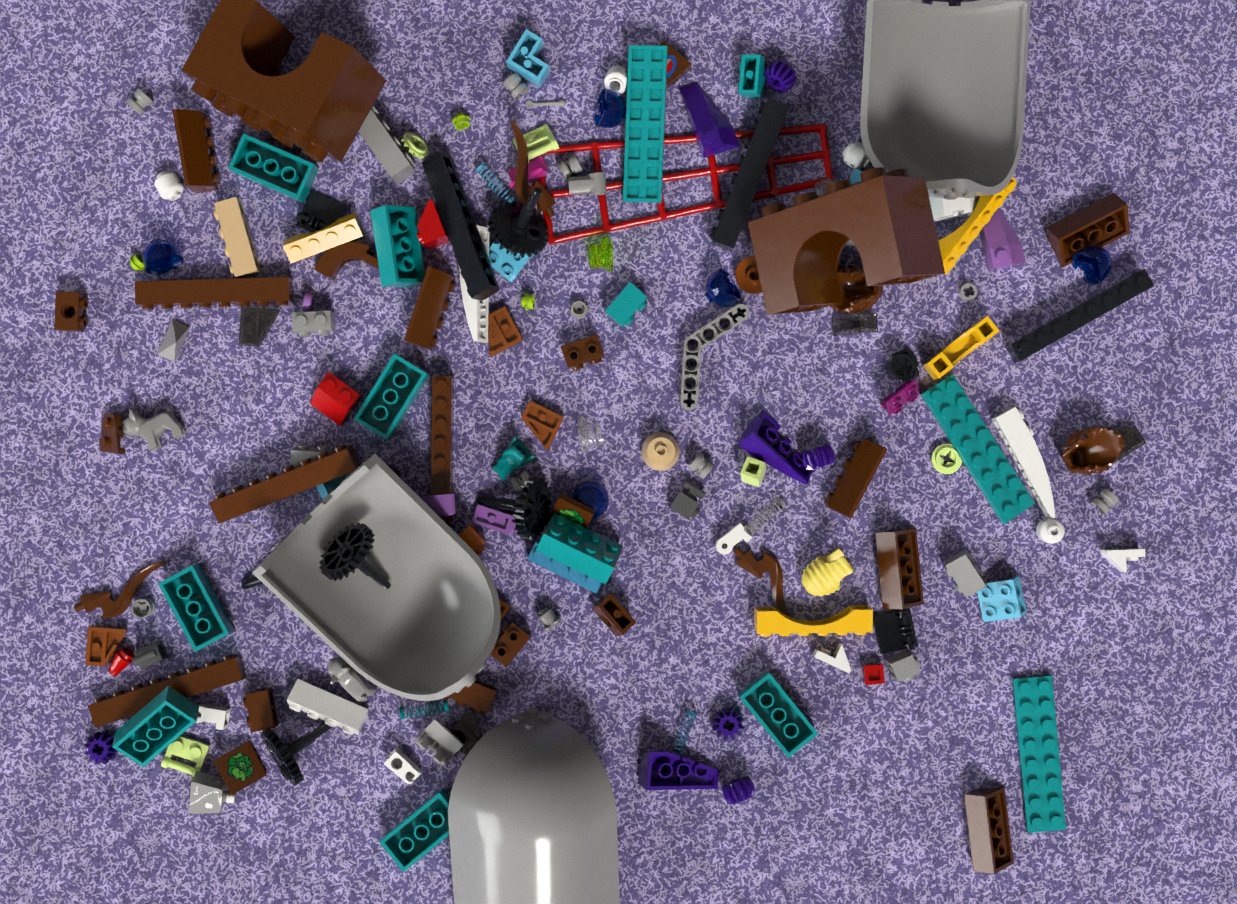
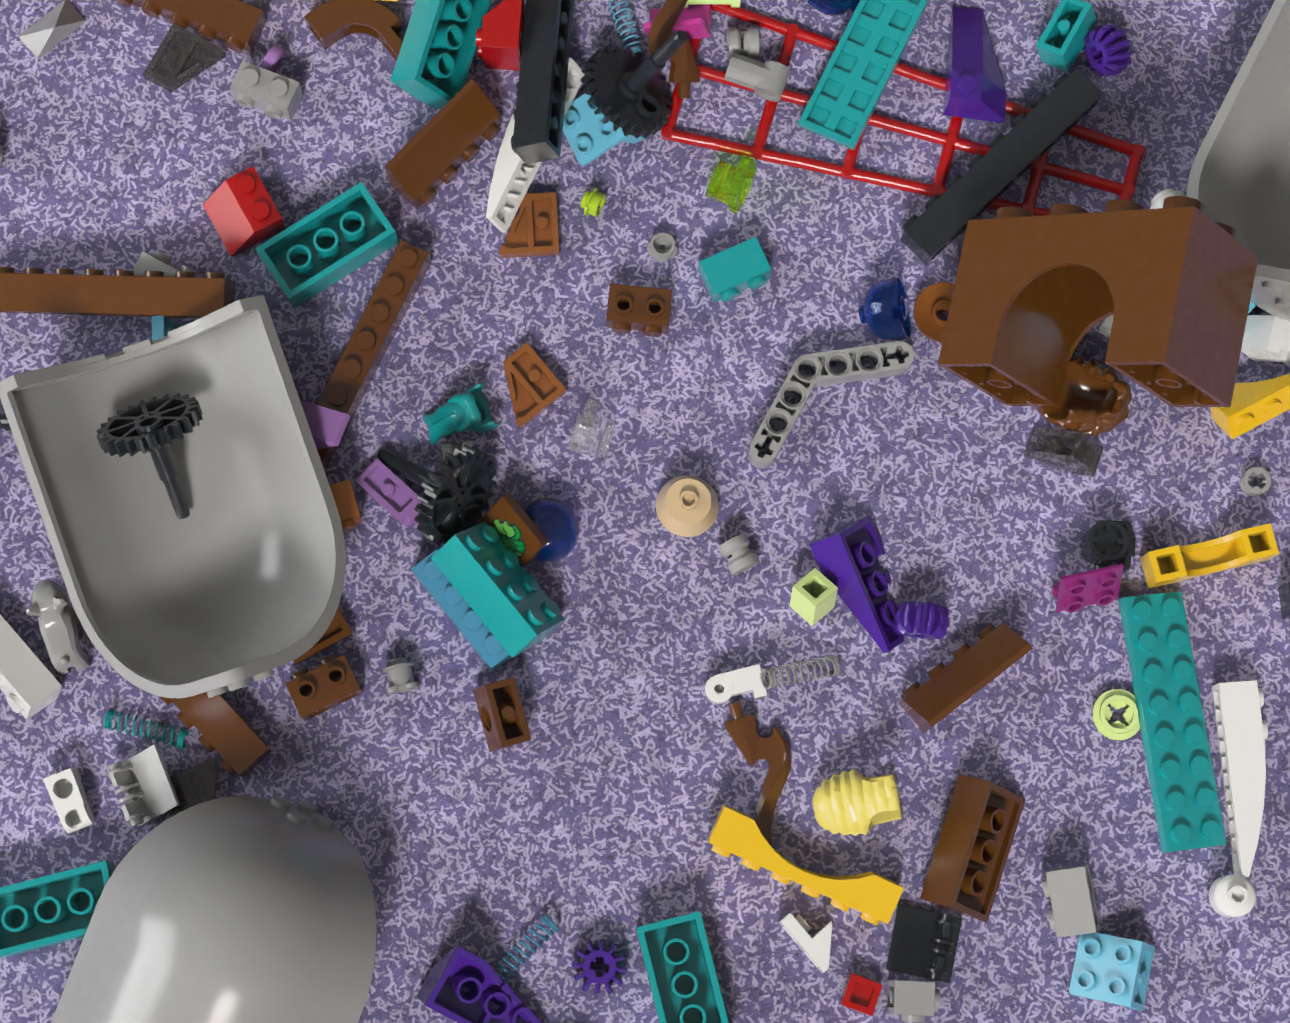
camera: 20 degrees right, 10 degrees down
(685, 504) = (688, 599): dark grey brick -> none

